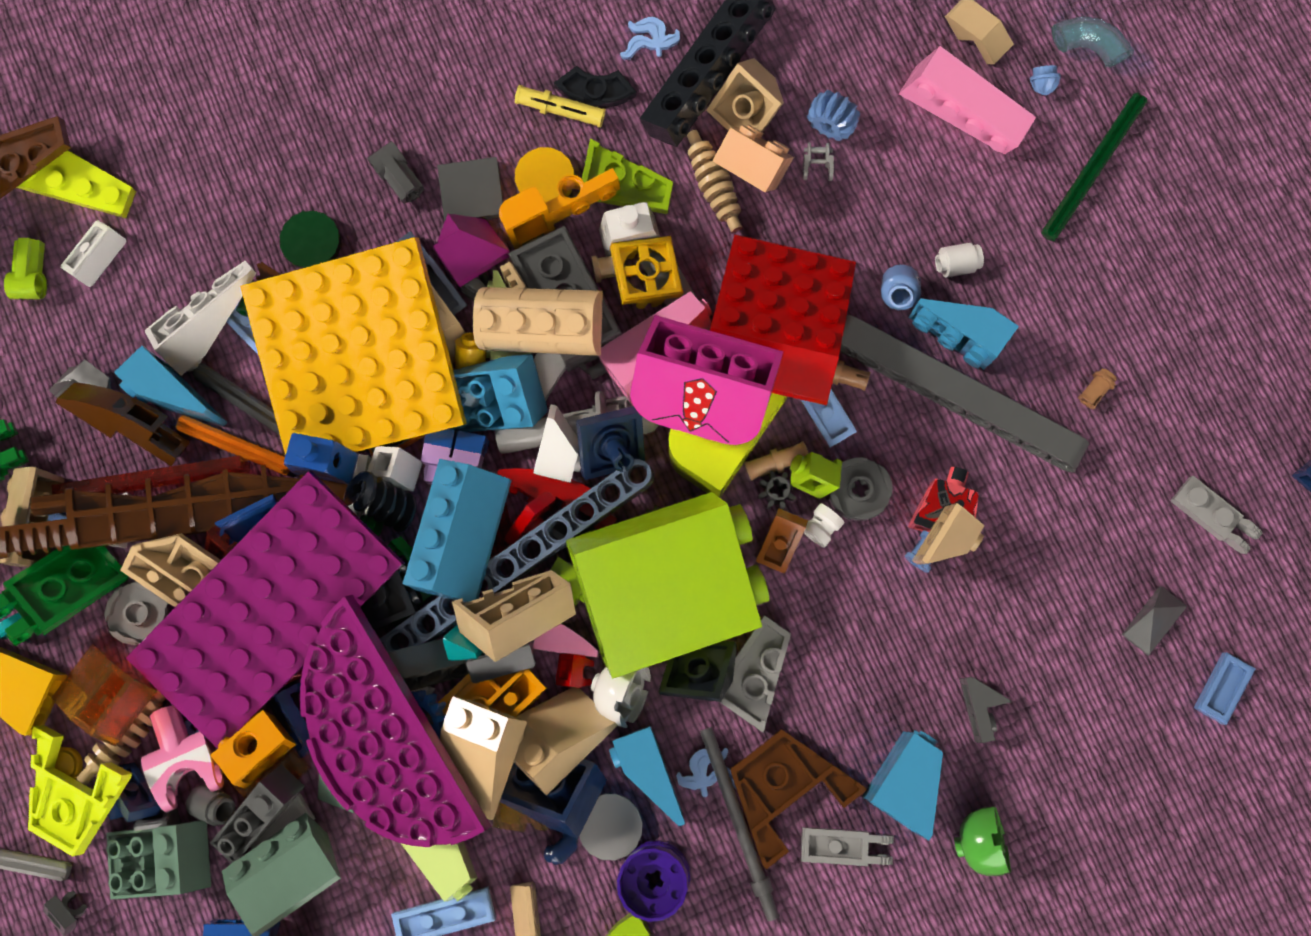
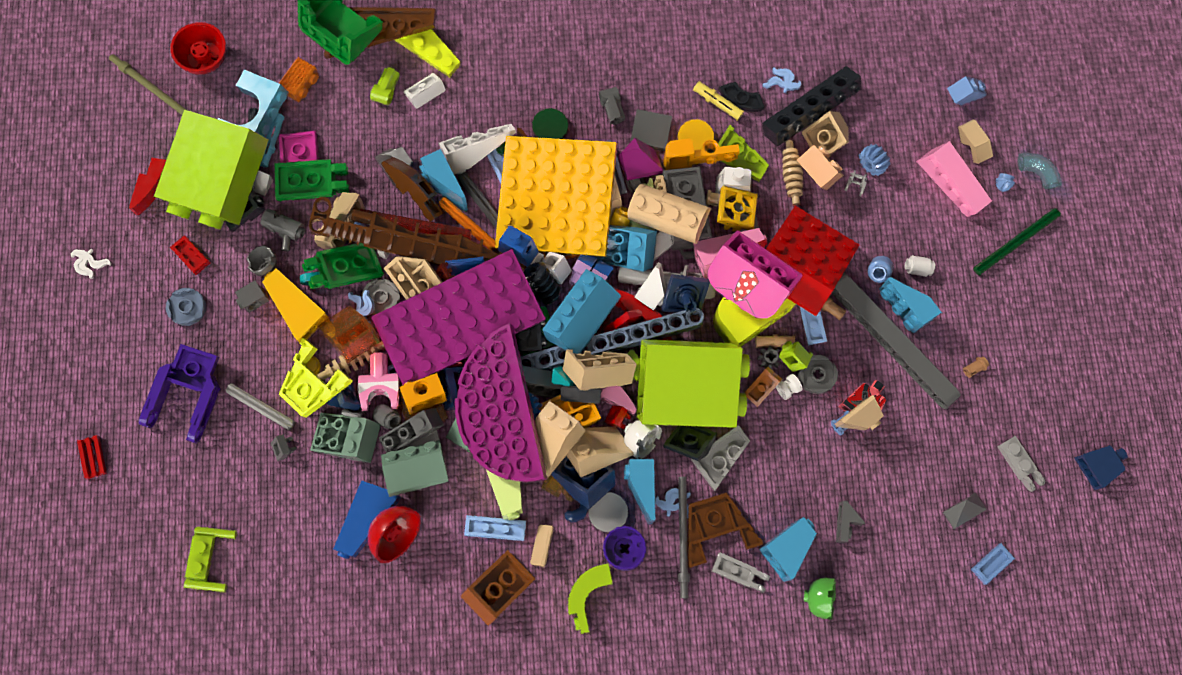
camera: 10 degrees right, 5 degrees down
(114, 638) = (368, 307): none -> light blue piece

